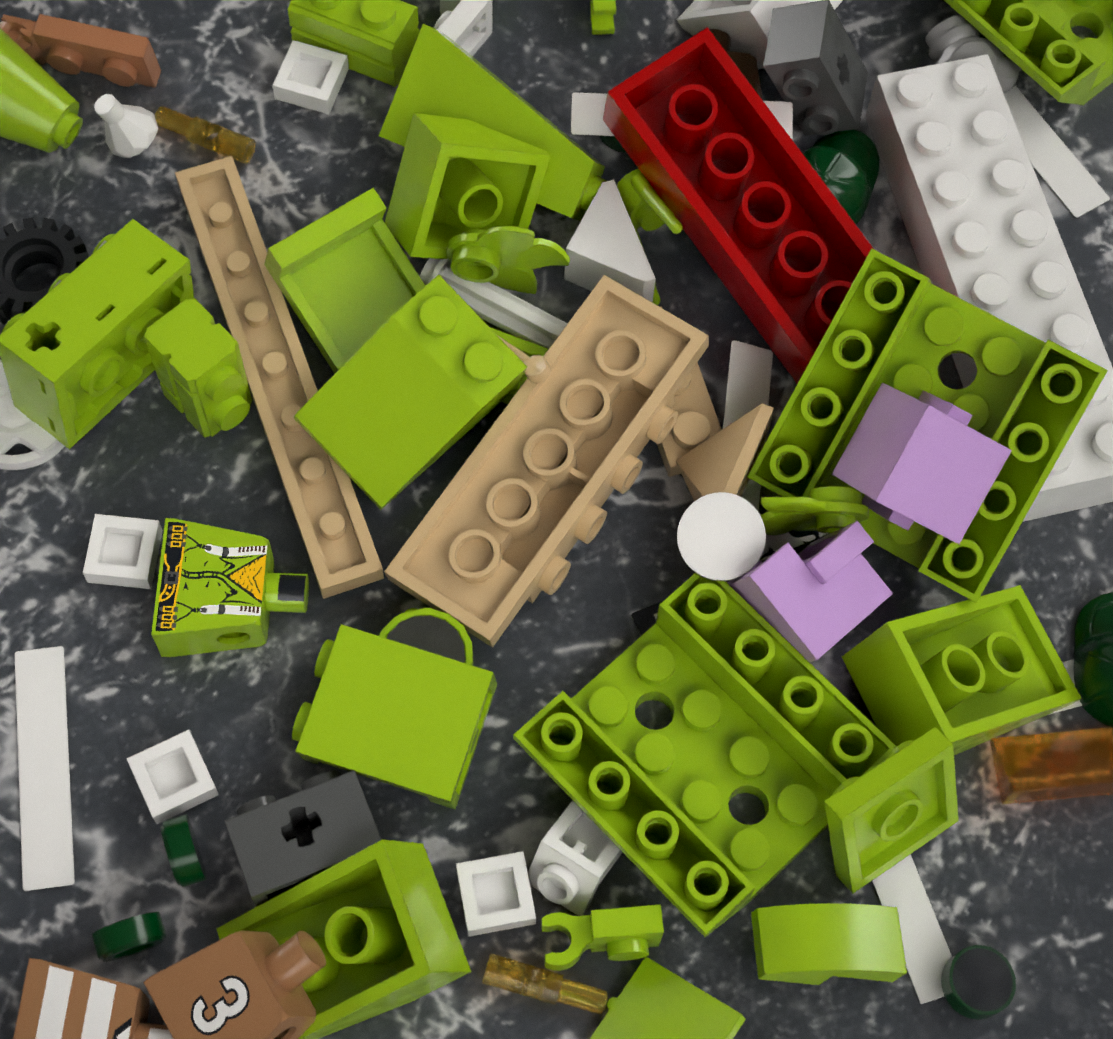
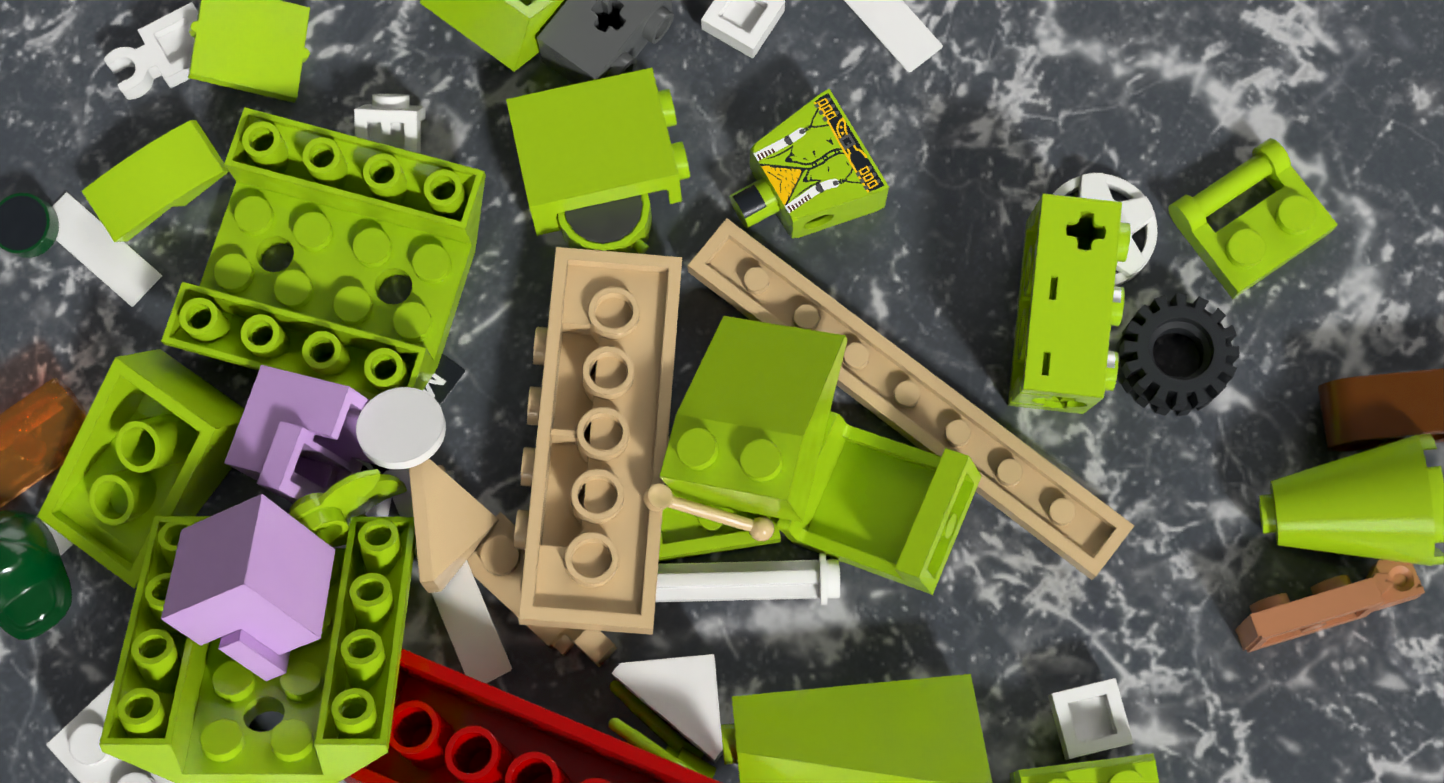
camera: 155 degrees right, 10 degrees up
(122, 551) = (913, 161): white plate -> none
(127, 127) = (1218, 556): white rock -> none
(198, 129) = (1116, 602): clear yellow pin -> none
(199, 368) = (956, 329): lime brick -> none
(460, 180) = (846, 652): lime slope -> none
(496, 893) = (437, 72): white plate -> none
(503, 257) = (783, 595): lime plate -> none
(542, 984) = (392, 27): clear yellow pin -> none
(619, 931) = (330, 93): lime plate -> none
(892, 809) = (162, 275): lime plate -> none

